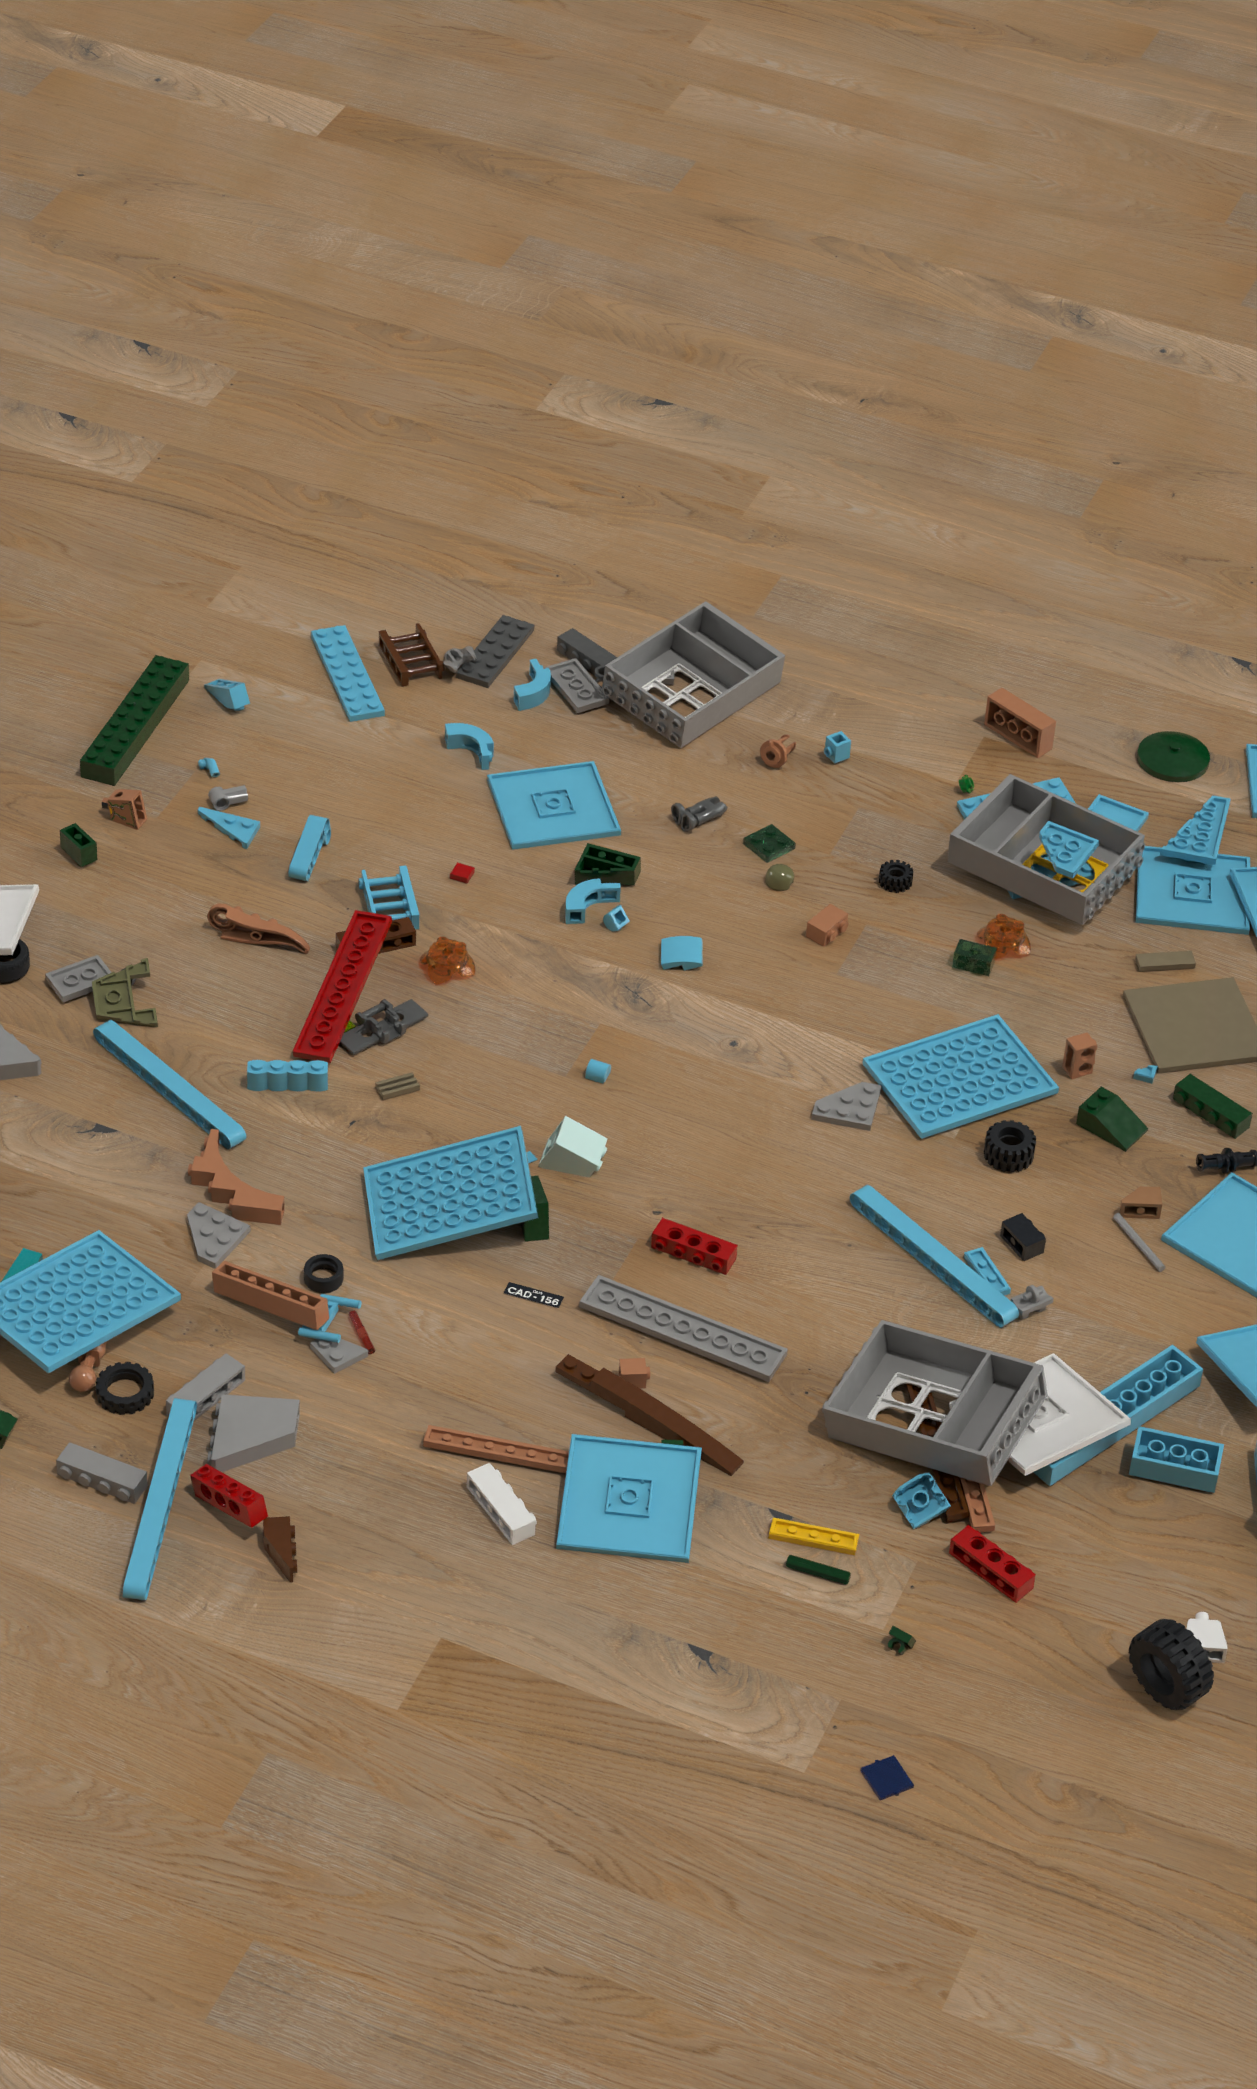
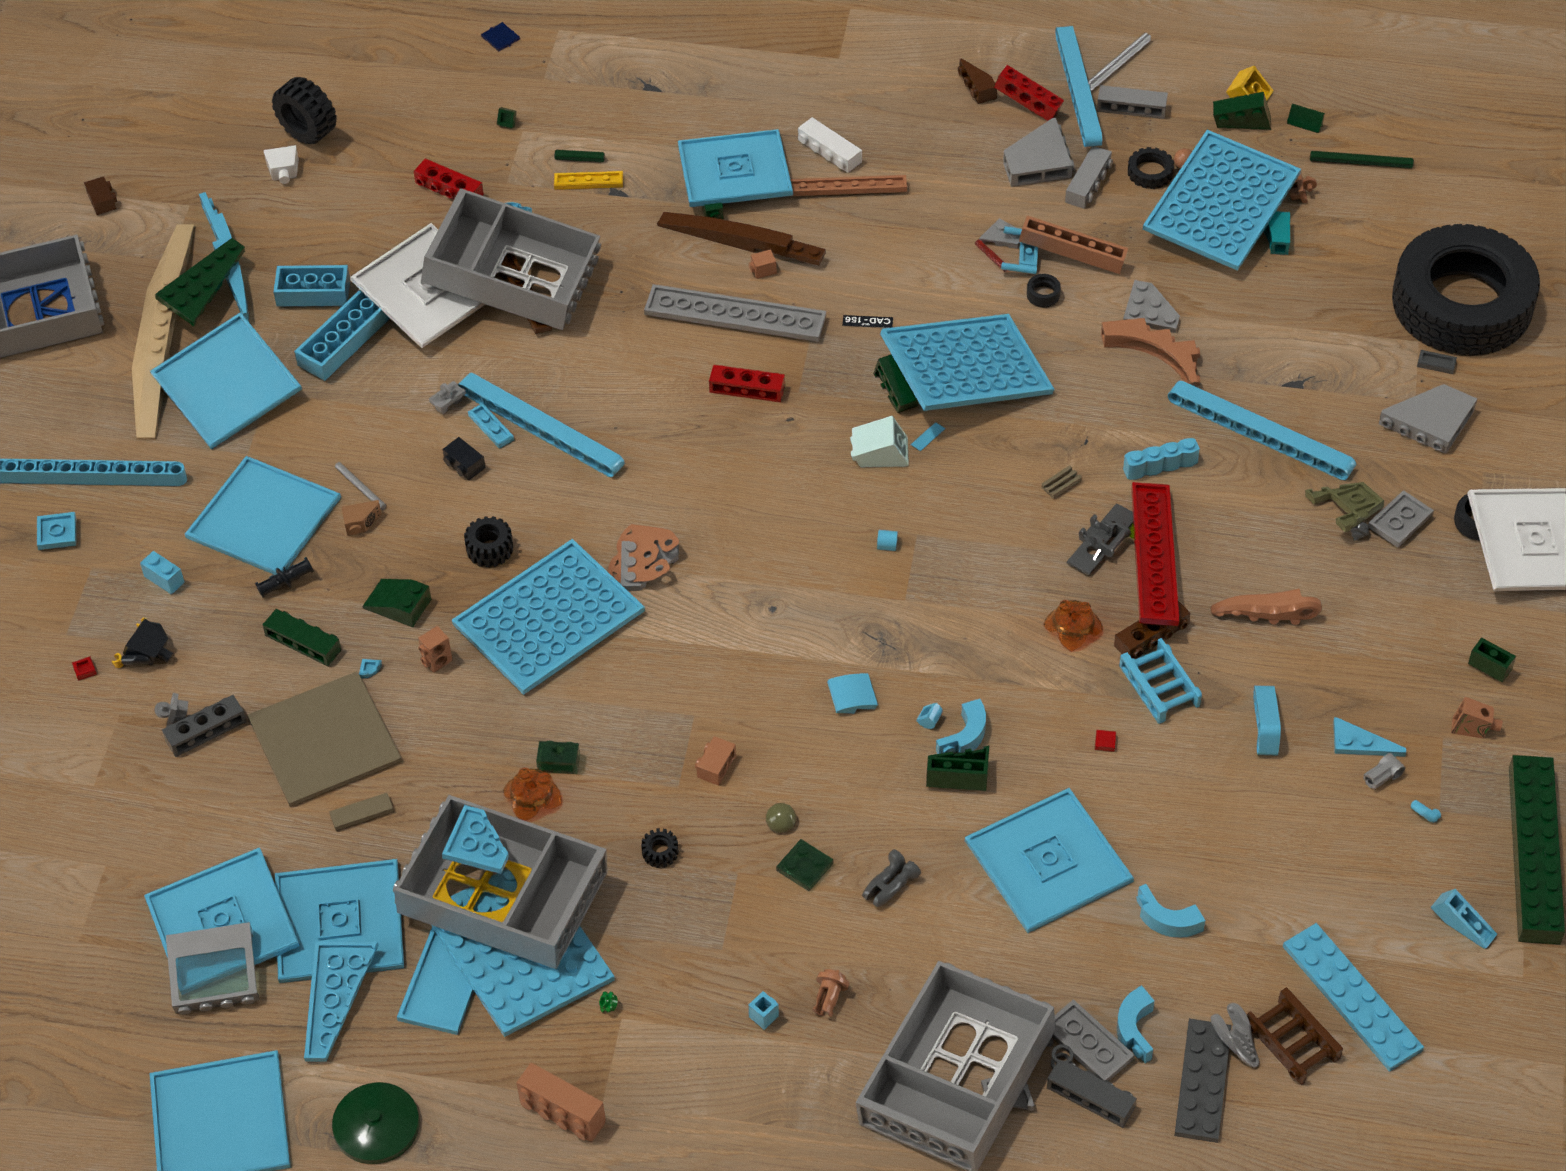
camera: 170 degrees right, 10 degrees up
(85, 1539) = (1119, 60): none -> light grey axle
(847, 1113) = (644, 539): none -> nougat piece

